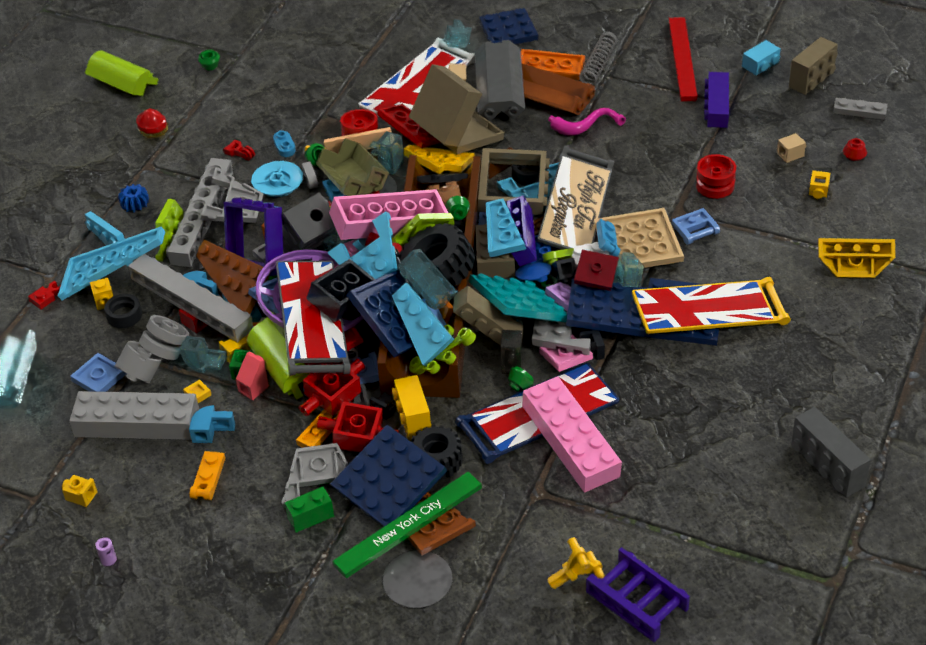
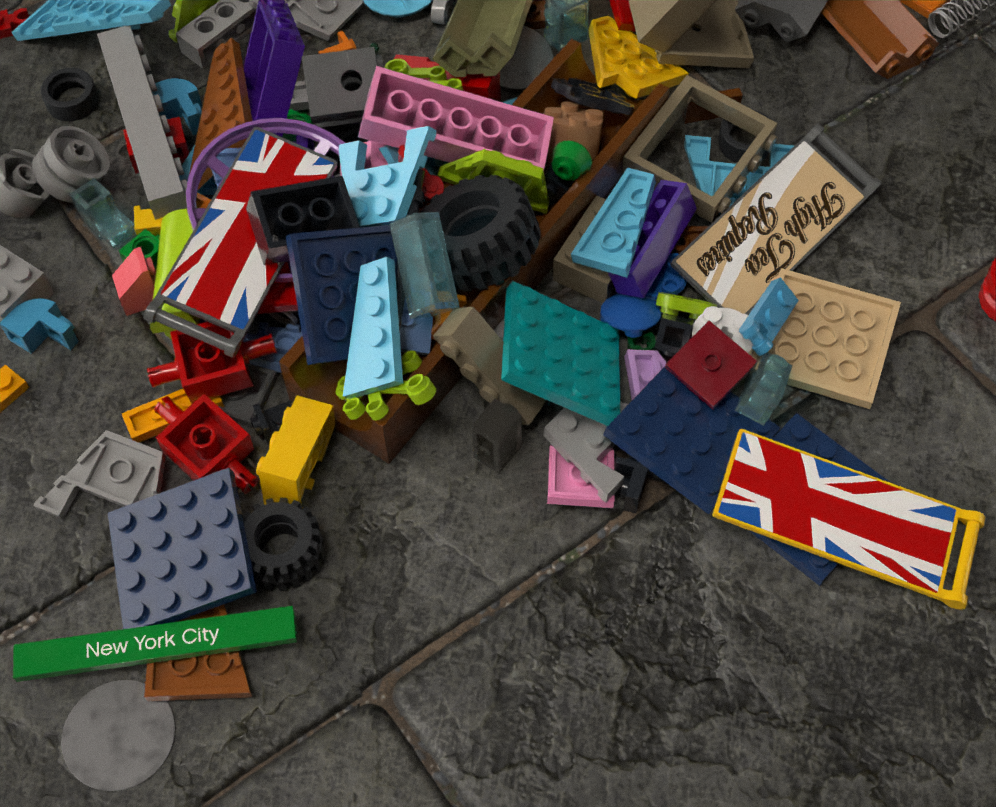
camera: 30 degrees right, 15 degrees up
(101, 289) = (60, 53): yellow brick -> none
(200, 389) = (63, 267): yellow plate -> none
(309, 509) = (55, 537): green brick -> none
(509, 425) = (478, 552): flag -> none
(519, 379) = (482, 485): green cone -> none
(571, 434) = (482, 627): bright pink brick -> none
(576, 128) = (863, 100): dark pink animal -> none
(695, 221) = (930, 348): medium blue plate -> none

